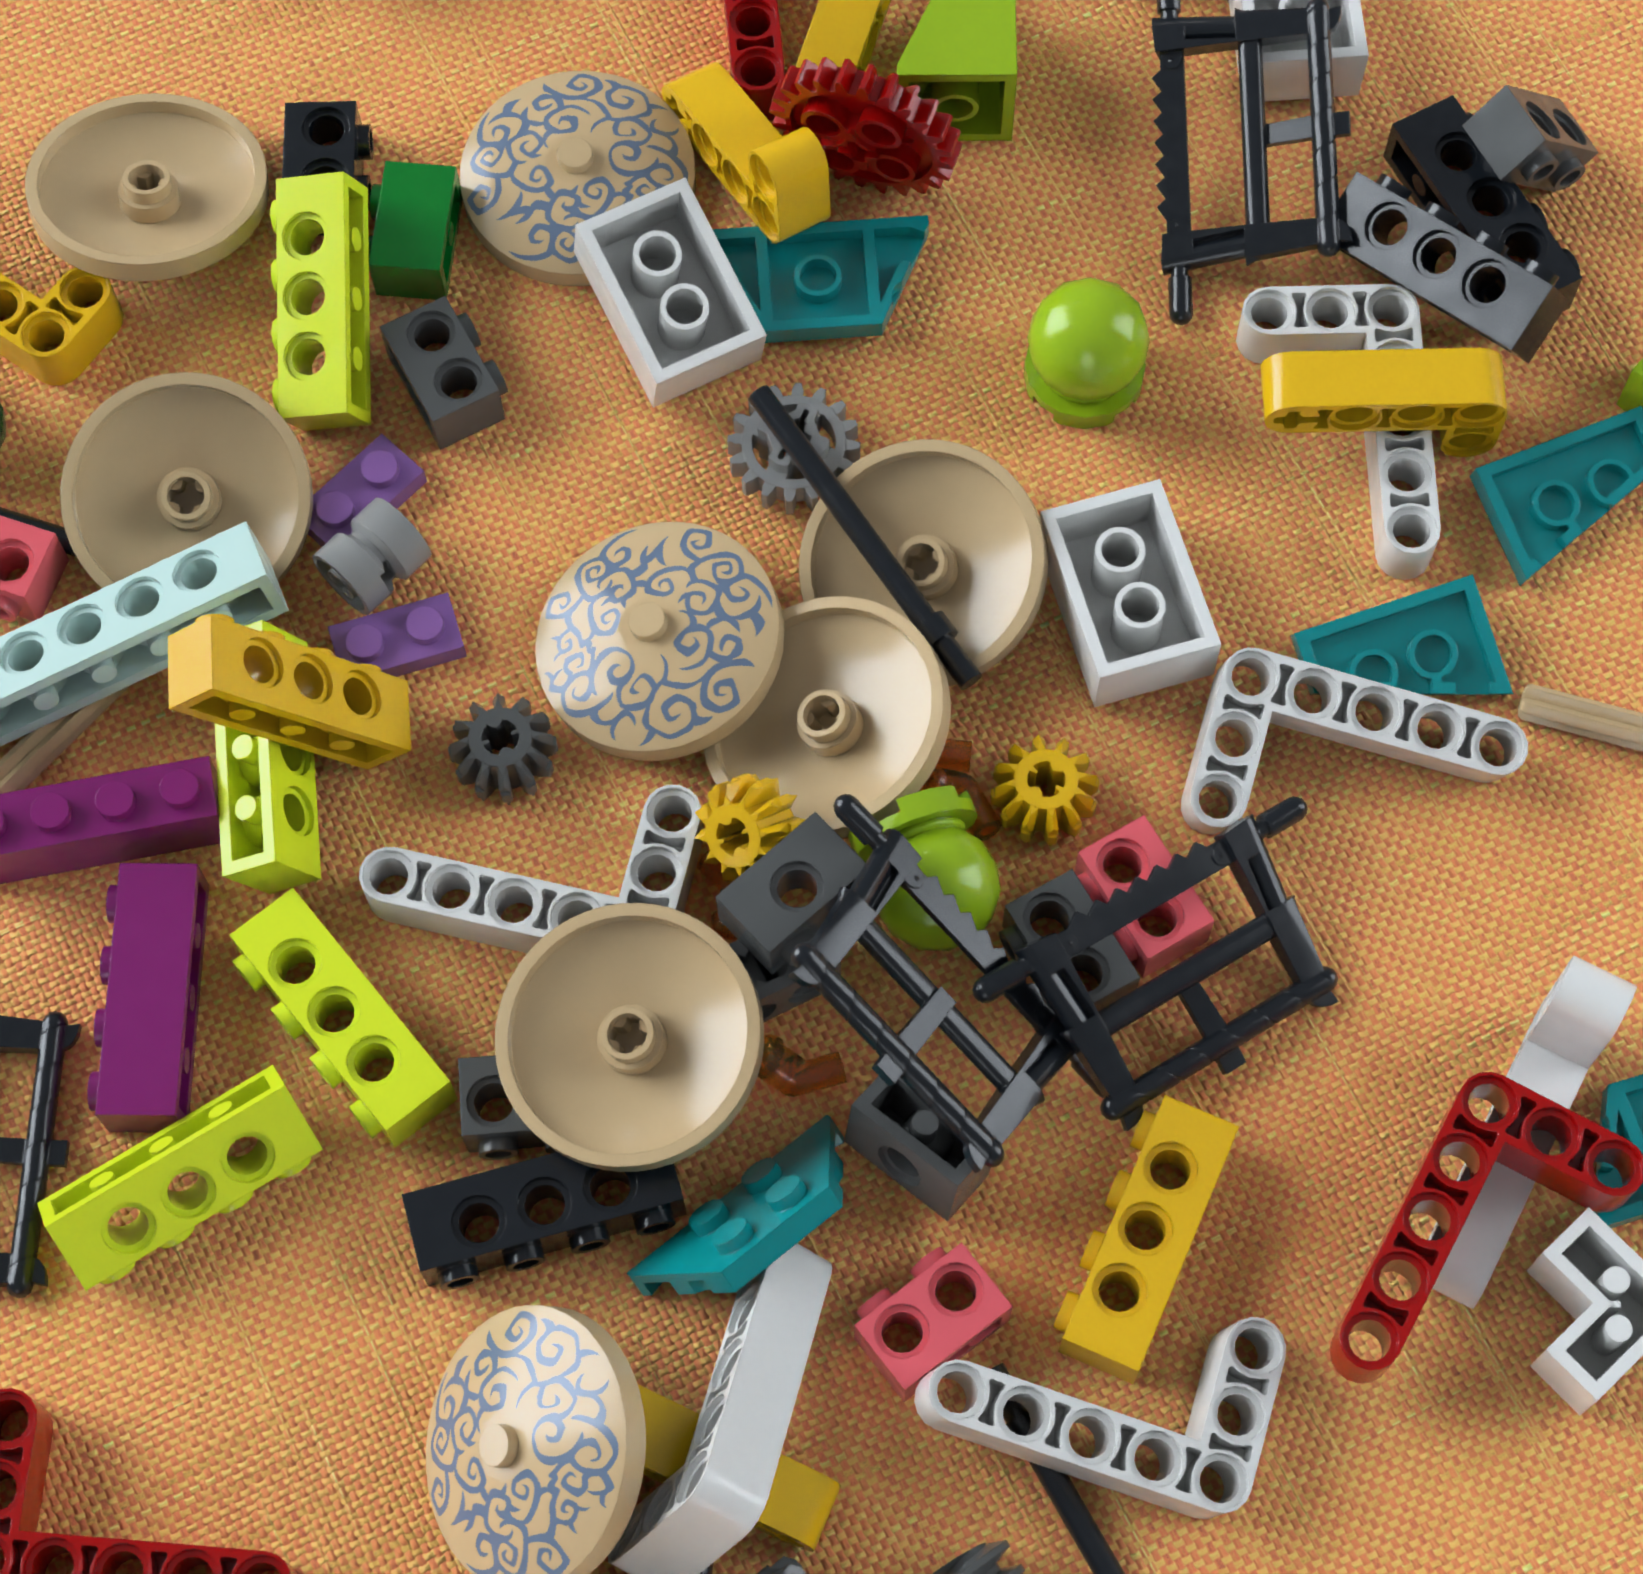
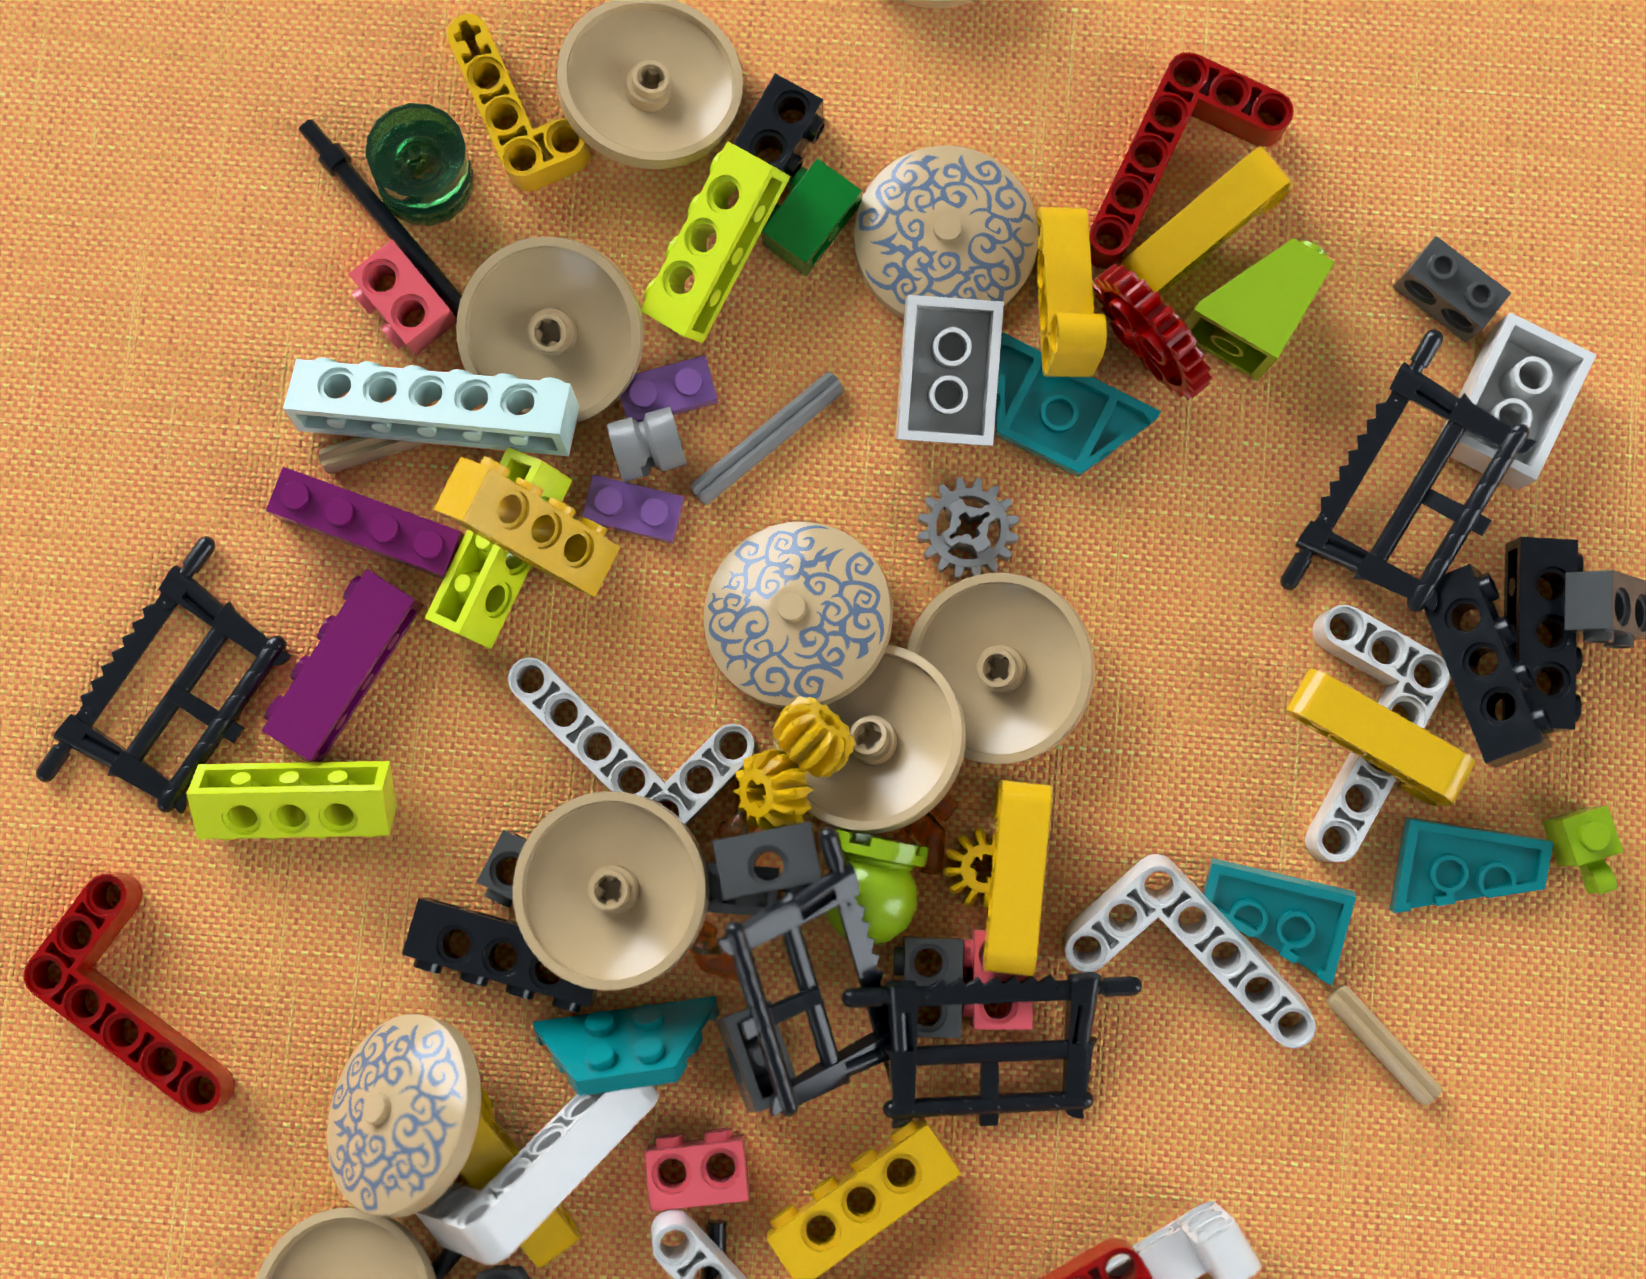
camera: 30 degrees right, 15 degrees up
(292, 934) = (475, 821): neon yellow brick -> none
(437, 374) = (761, 335): dark grey brick -> none
(496, 730) = (660, 613): dark grey gear -> none
(506, 484) = (767, 438): none -> light grey axle
(760, 741) = (813, 737): none -> yellow gear
(932, 625) = (976, 721): black bar -> none
(1056, 704) = (1017, 877): none -> yellow beam
(1086, 352) = (1202, 580): lime tile -> none
(1129, 593) = (1121, 769): white brick -> none

